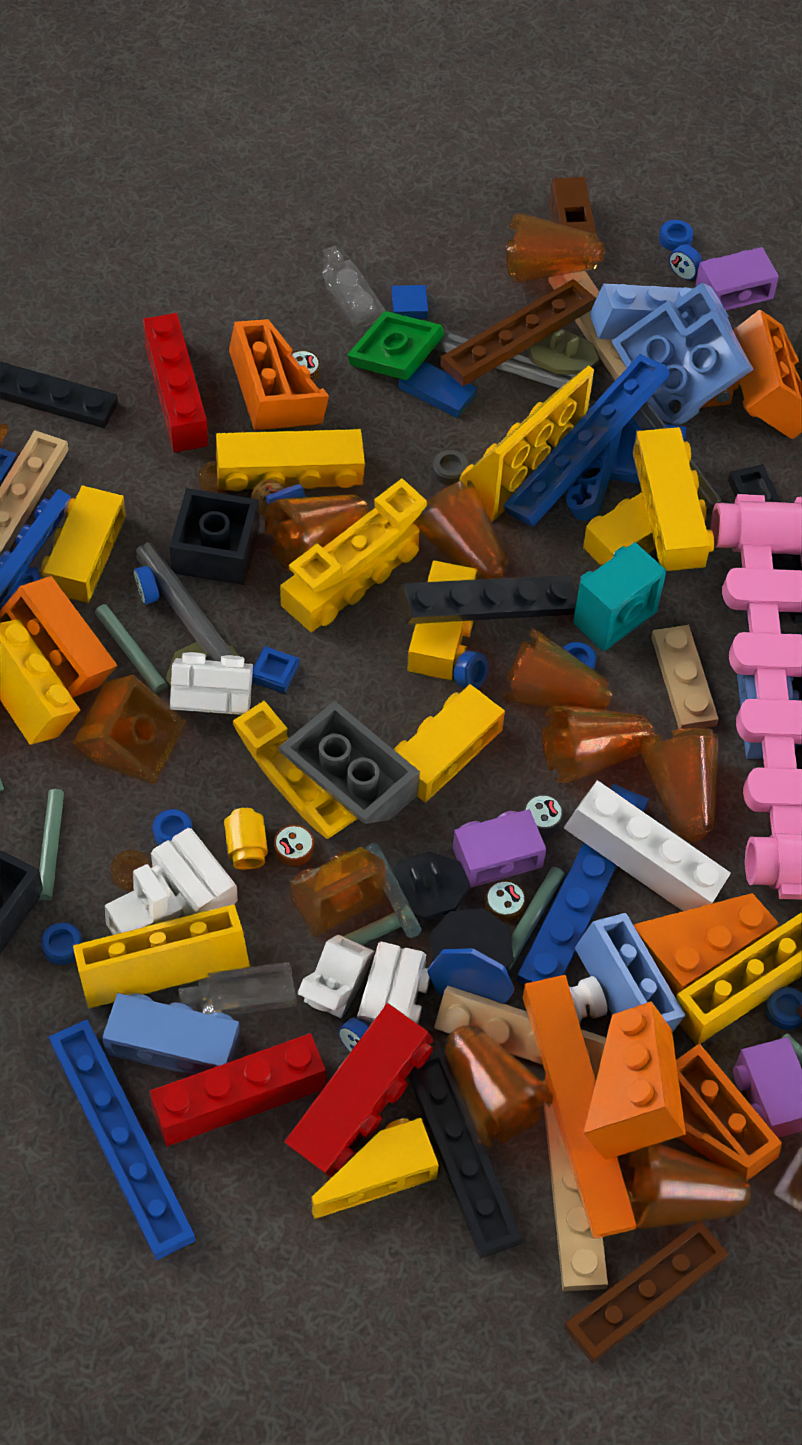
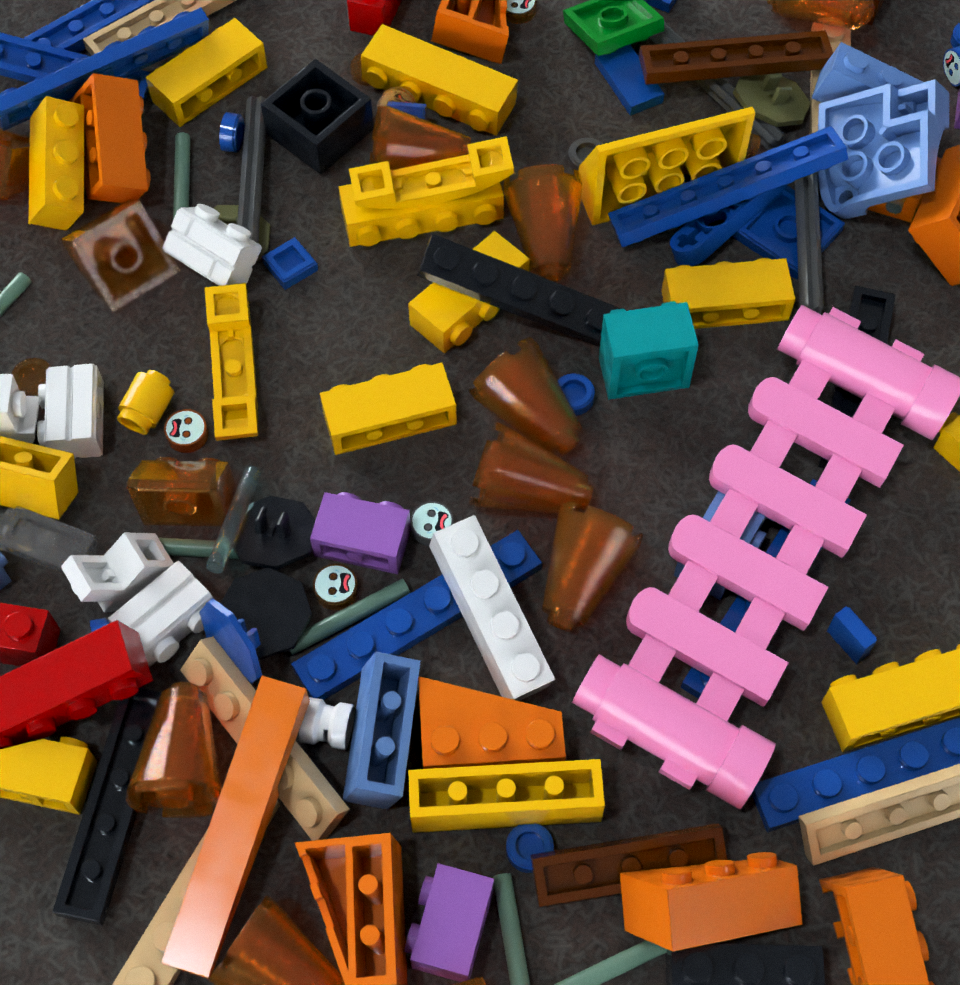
camera: 35 degrees right, 5 degrees up
(169, 824) = (99, 354): blue tile -> none
(353, 765) = (274, 385): dark grey slope -> none
(471, 669) = (461, 351): blue tile -> none
(636, 1085) = (288, 837): orange wedge -> none
(672, 499) = (762, 280): yellow brick -> none
(684, 677) = (666, 464): tan plate -> none

